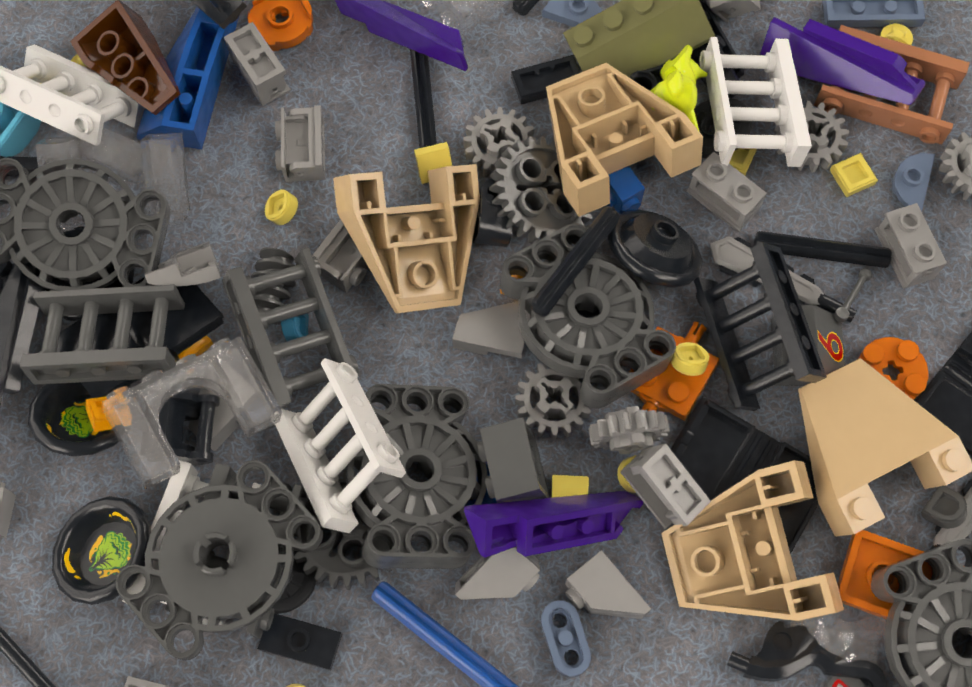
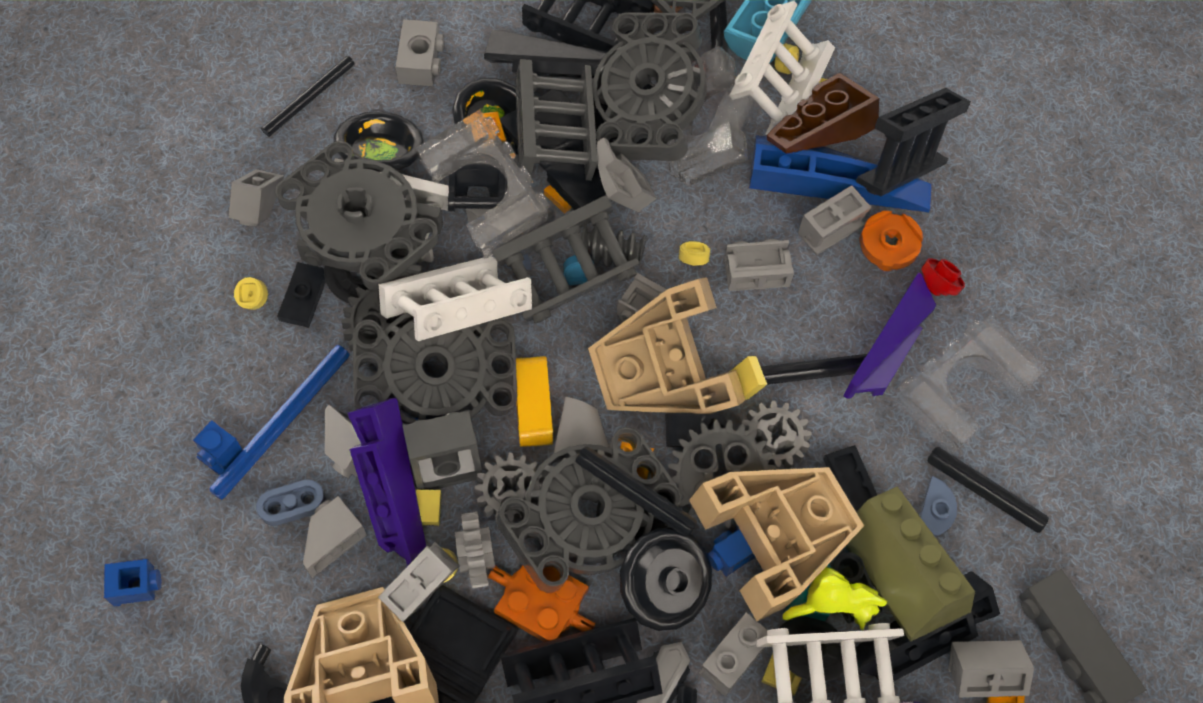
camera: 85 degrees right, 5 degrees down
(473, 373) = (533, 402): none -> yellow beam
(690, 359) = (546, 607): light yellow tile -> none

